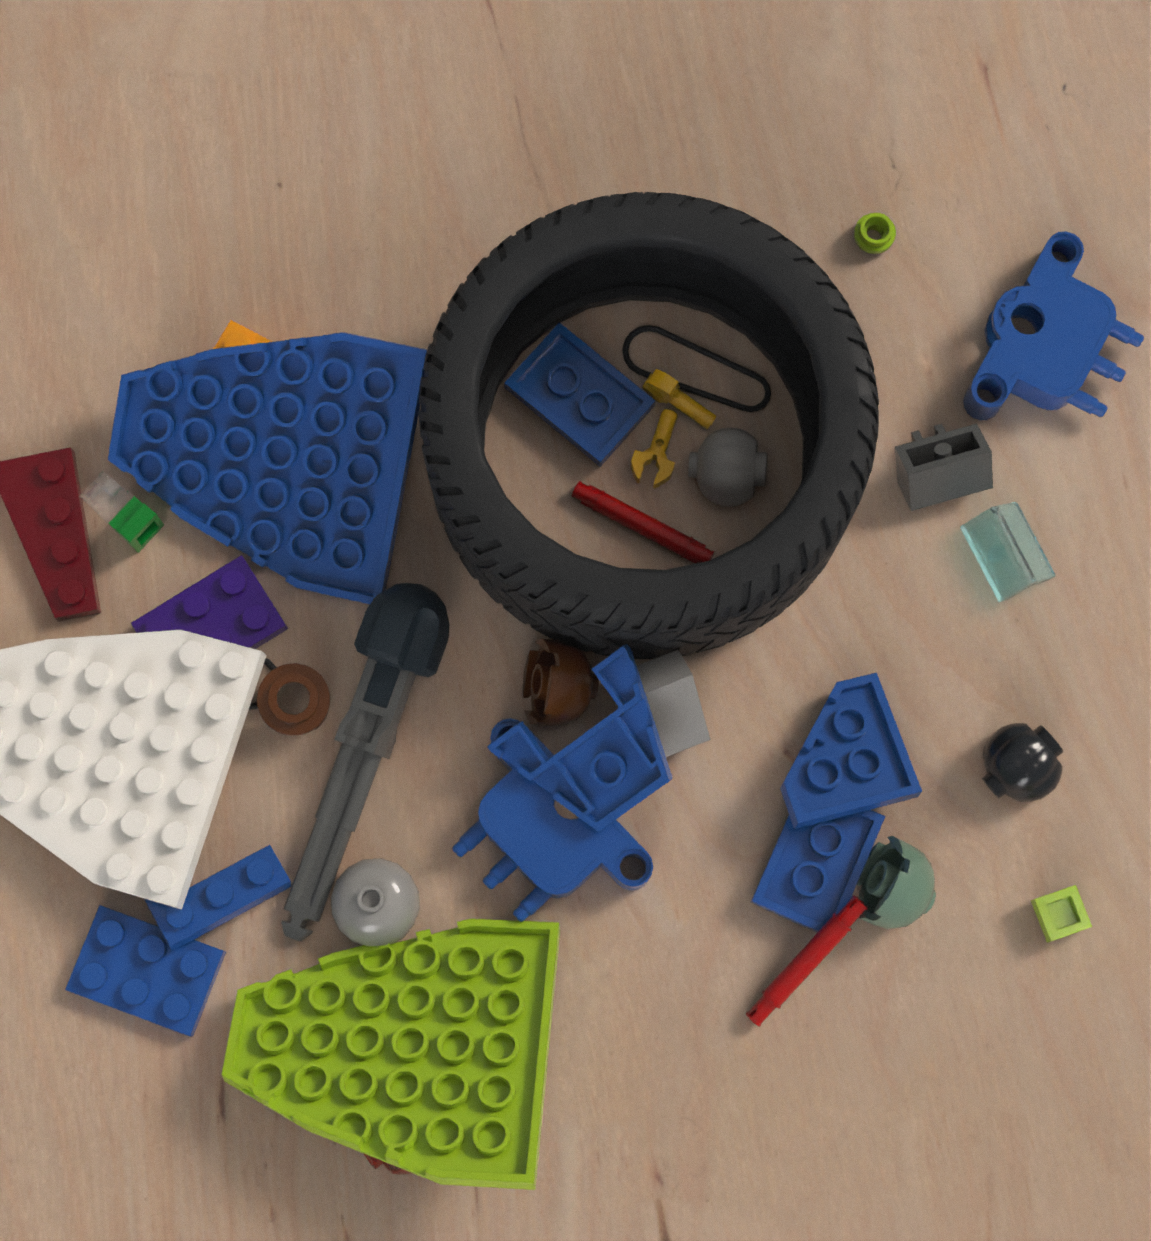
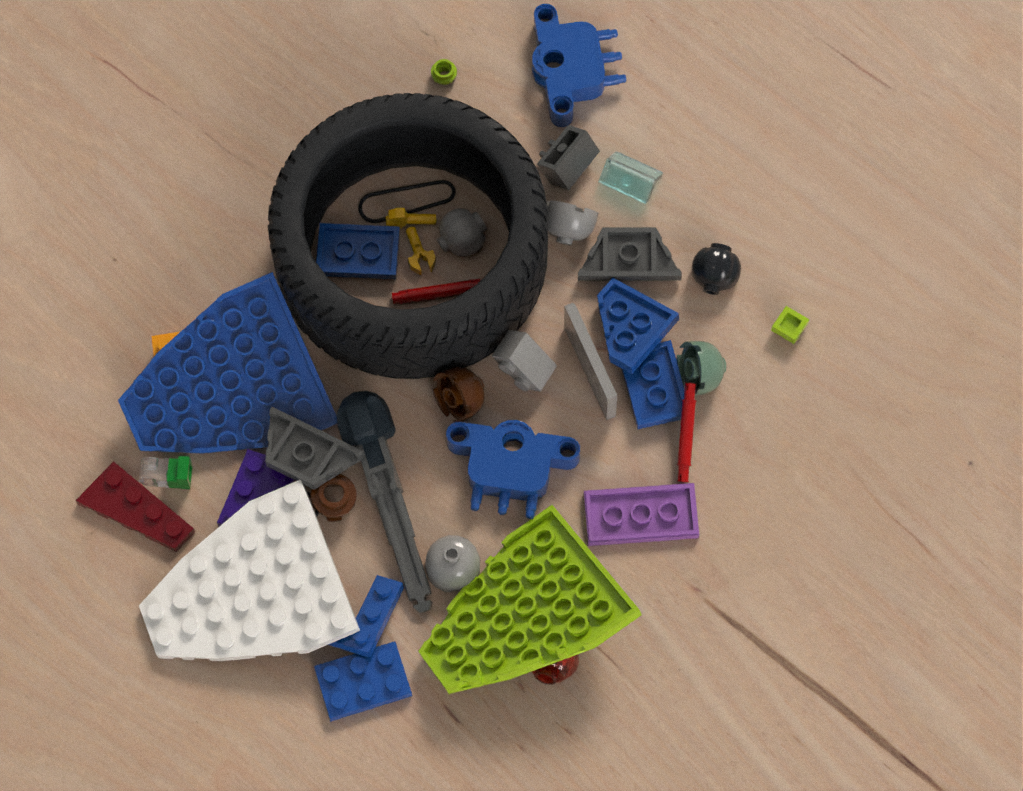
camera: 35 degrees left, 10 degrees down
(299, 617) = (306, 451): none -> dark grey wing
(606, 766) = (518, 405): blue wing -> none
(665, 1022) = (641, 514): none -> medium lavender tile
(755, 768) = (590, 361): none -> light grey tile
(877, 555) = (570, 222): none -> light grey cylinder
(921, 659) = (629, 256): none -> dark grey wing

